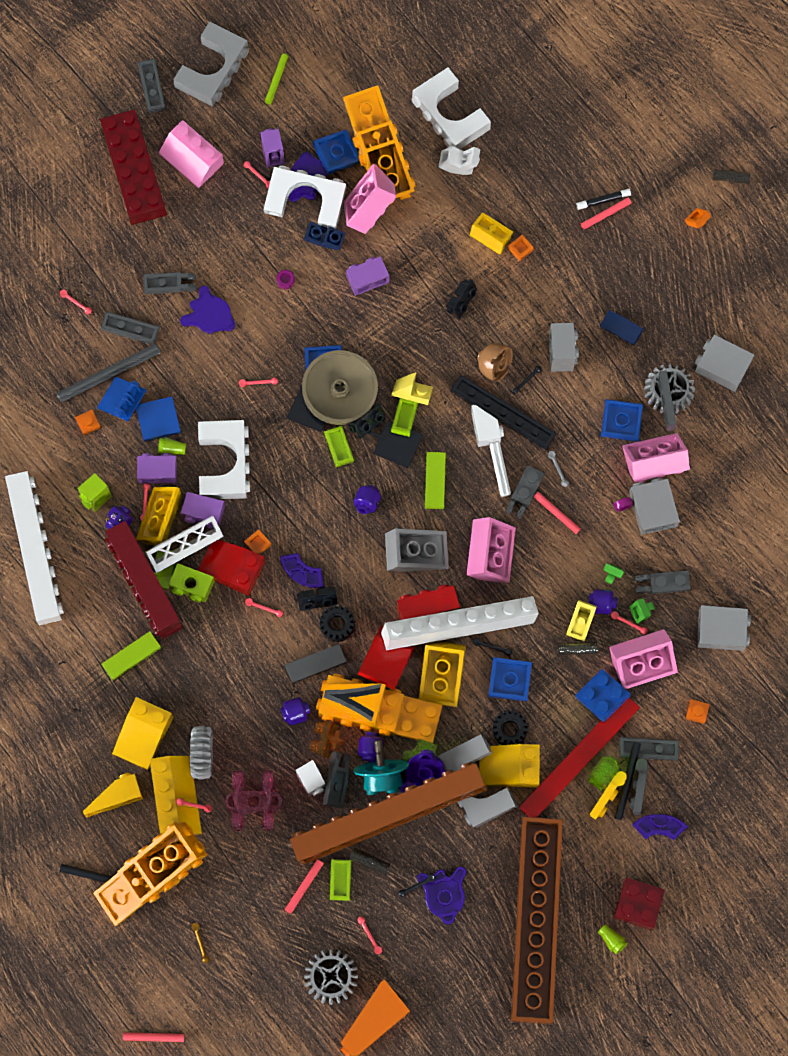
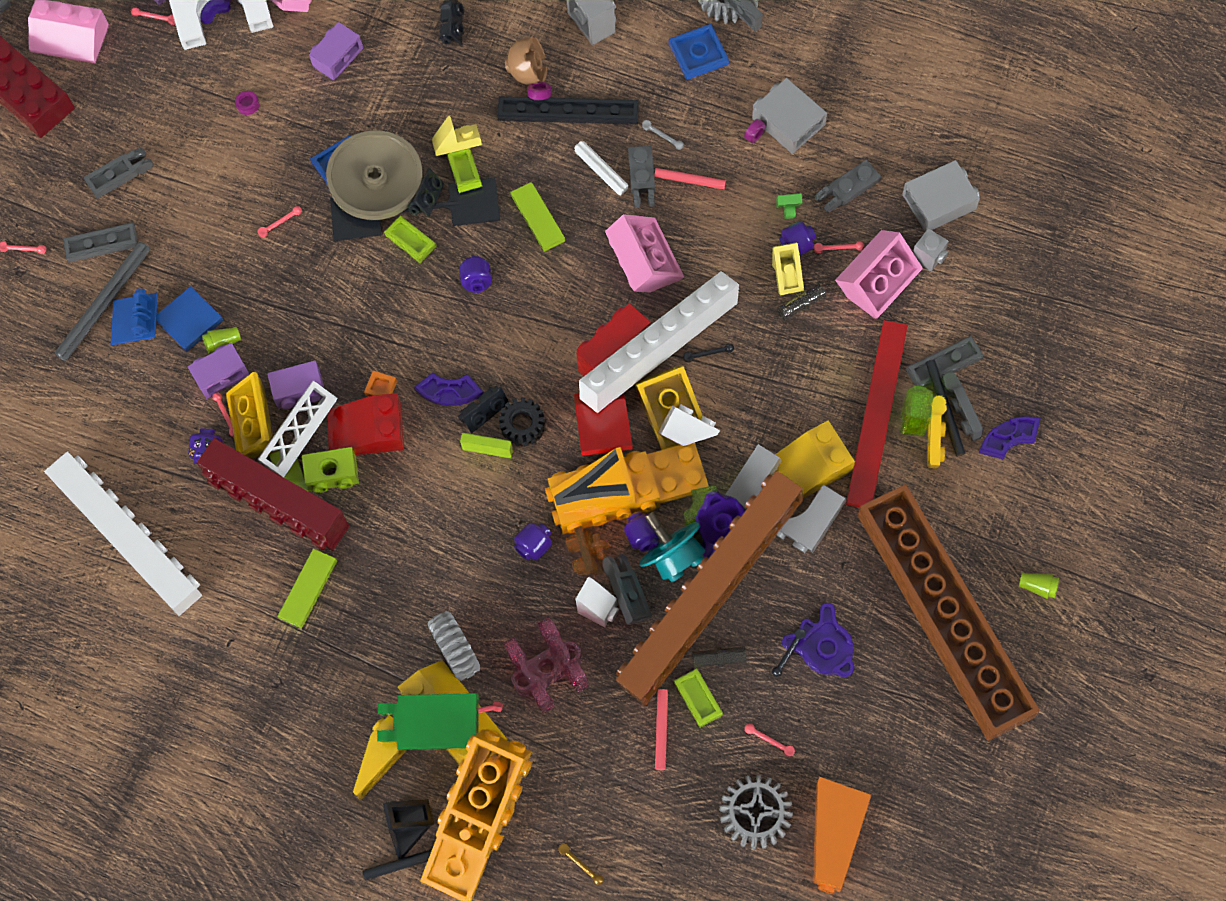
camera: 25 degrees left, 5 degrees down
(87, 422) = (109, 365): orange plate -> none
(94, 493) = (160, 432): lime brick -> none
(106, 851) = (407, 823): none -> black slope
(142, 733) = (371, 664): yellow slope -> none
(157, 795) = (431, 721): none -> green tile
(209, 314) = (182, 181): dark purple tile -> none
(233, 435) = (282, 290): white arch -> none
(249, 602) = (409, 455): coral hinge -> none
(303, 626) = (486, 445): none -> lime tile
(315, 664) = (524, 479): dark grey tile -> none
(324, 237) = (266, 39): dark blue slope -> none
(416, 550) = (561, 297): light grey slope -> none
(441, 694) = (685, 428): none -> white slope
(486, 427) = (558, 132): white slope -> none
(491, 387) = (539, 91): none -> magenta tile
(510, 679) = (749, 374): blue plate -> none
(514, 717) = (778, 411): black tyre -> none
(537, 369) = (577, 49): black hinge -> none
(602, 695) = (860, 334): blue plate -> none
(639, 904) = (1044, 529): dark red brick -> none
(641, 610) = (844, 225): bright green tile -> none
(656, 457) = (760, 66): bright pink slope -> none
(689, 663) = (931, 250): none -> light grey brick
(697, 711) = (970, 296): orange plate -> none

